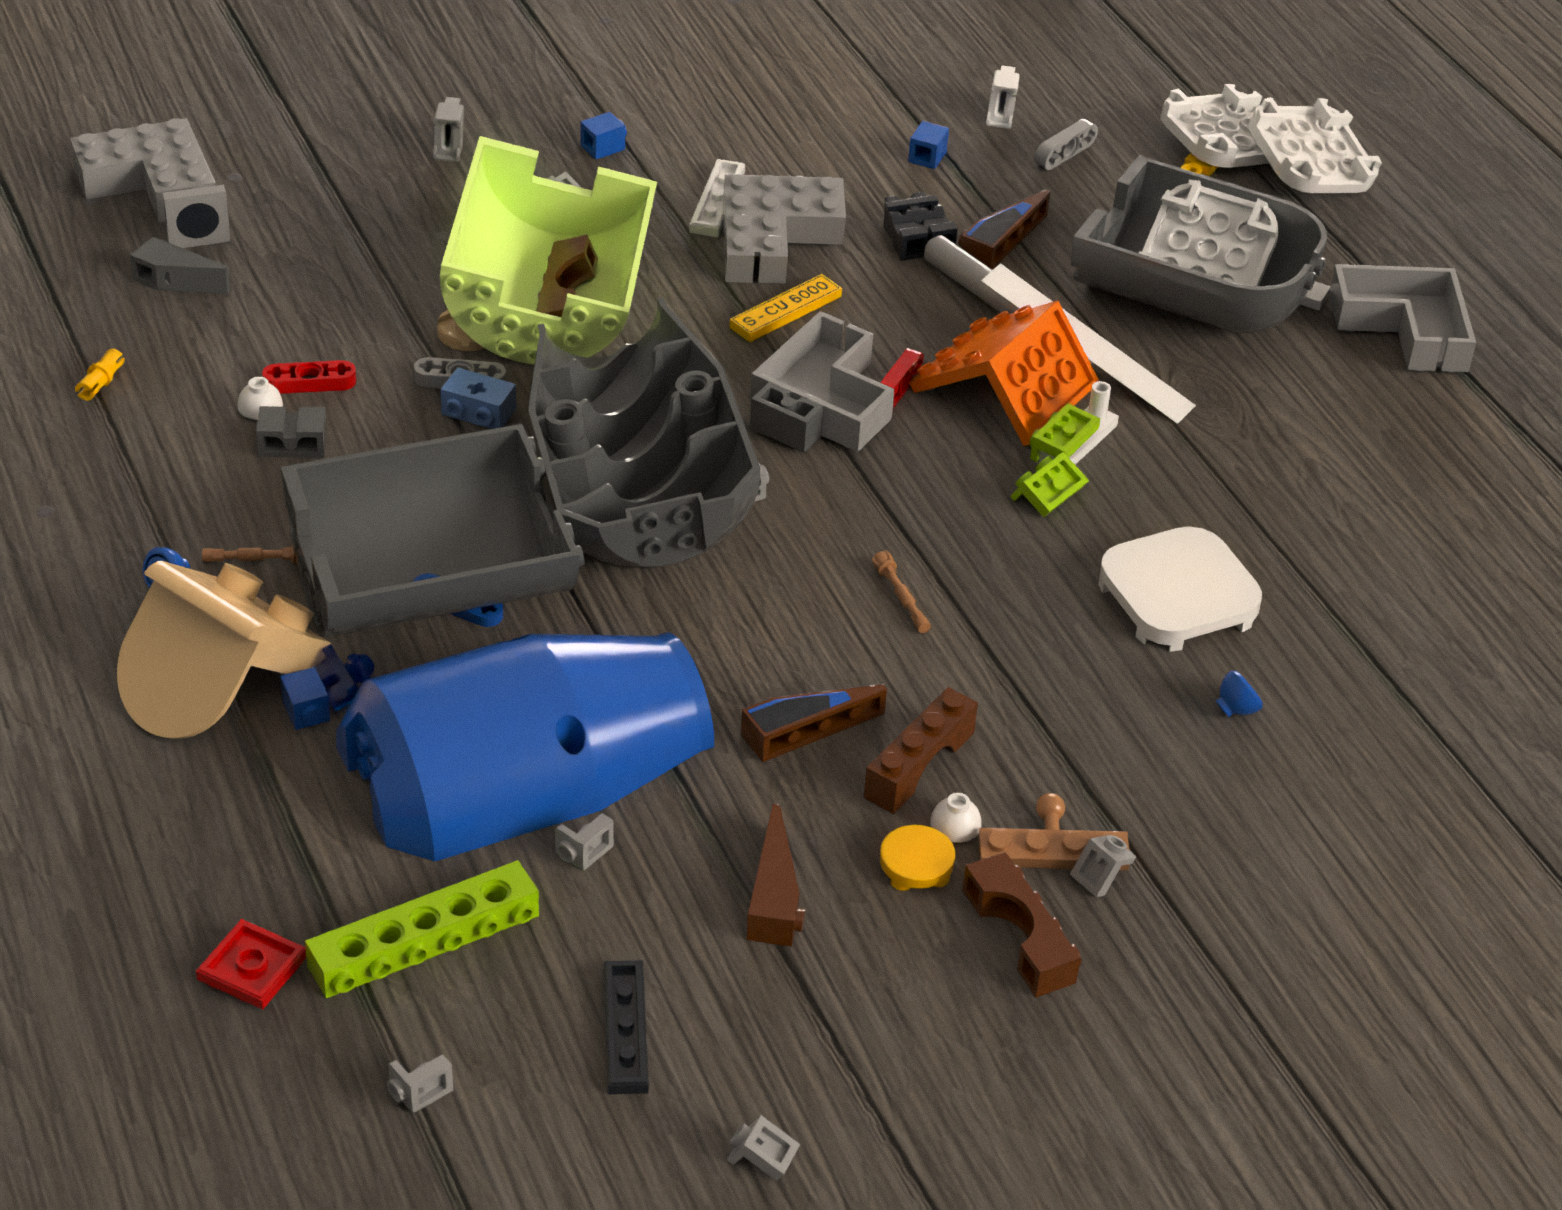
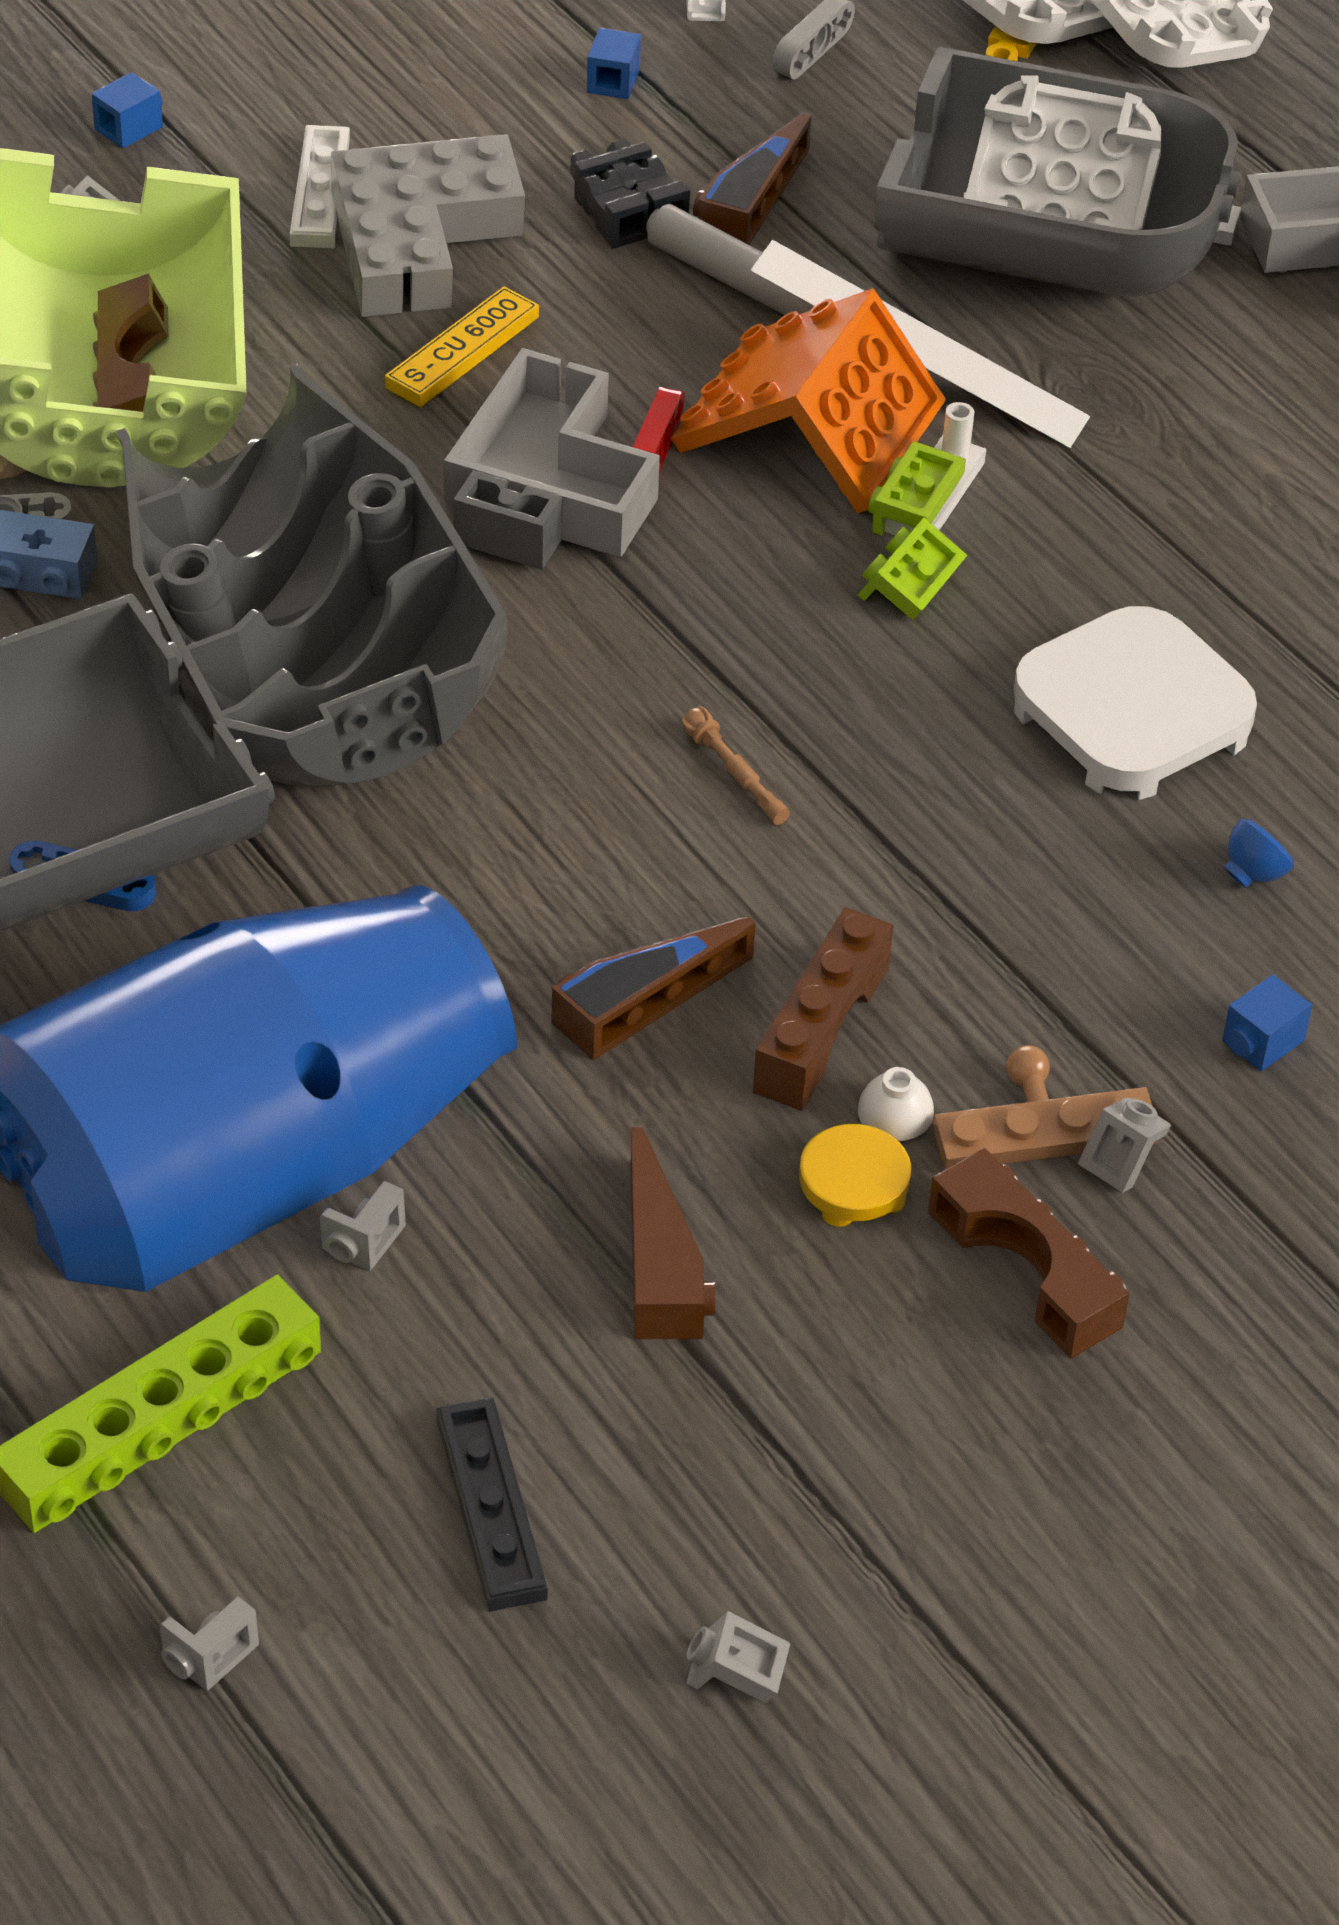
camera: 10 degrees left, 5 degrees up
(1219, 803) = (1267, 1022): none -> blue brick

